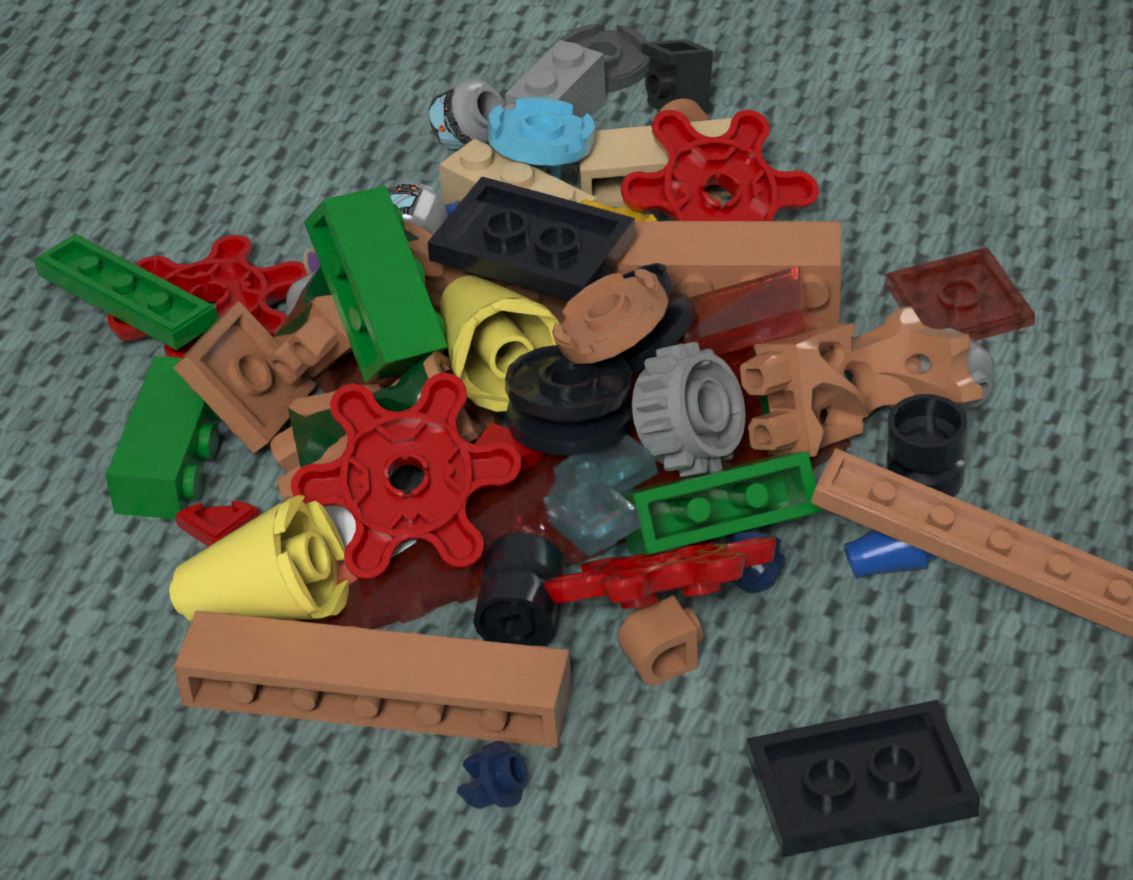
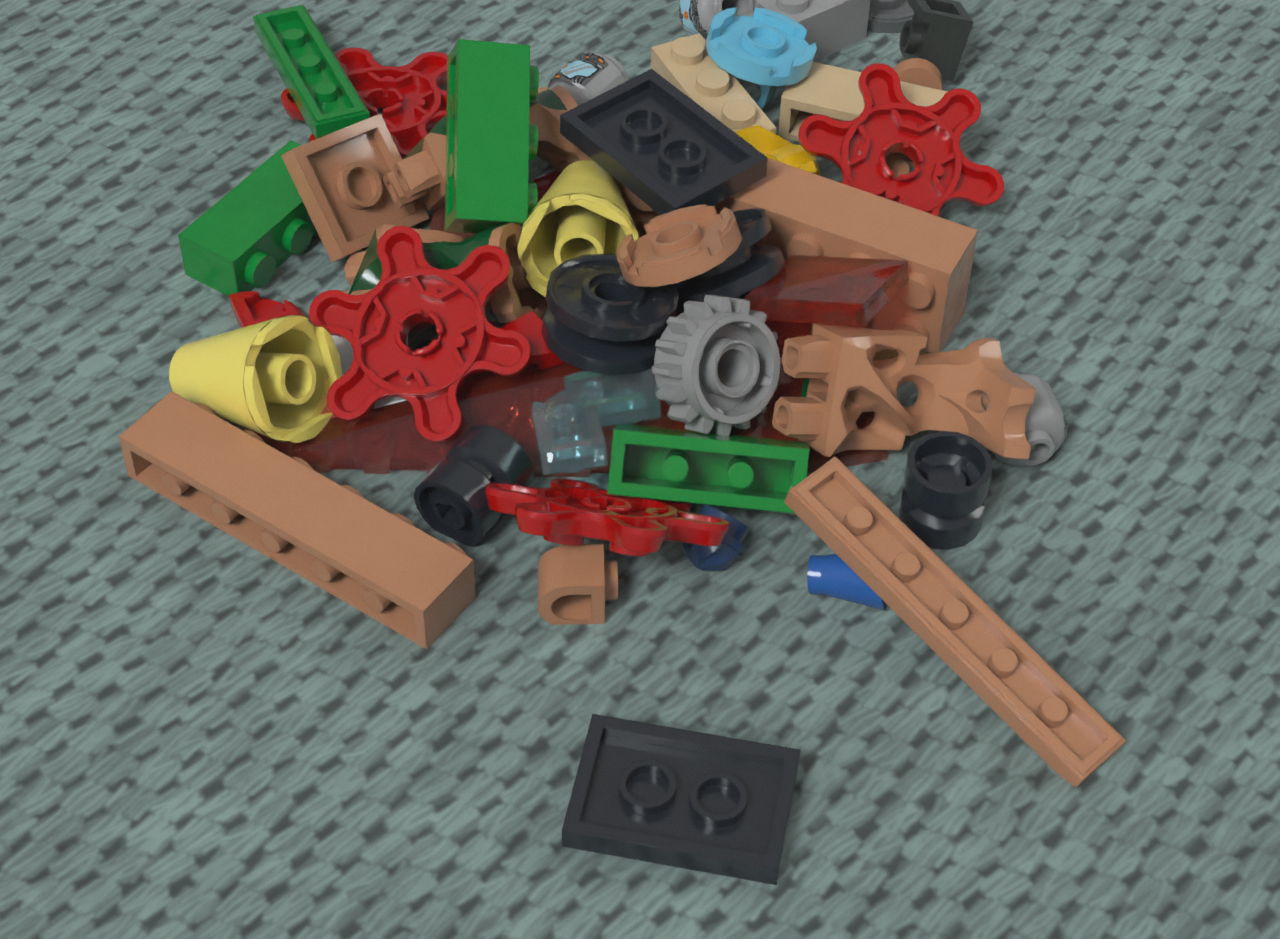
camera: 20 degrees right, 5 degrees up
(498, 775) = (346, 657): dark blue plate -> none
(962, 294) = (1086, 349): clear red tile -> none

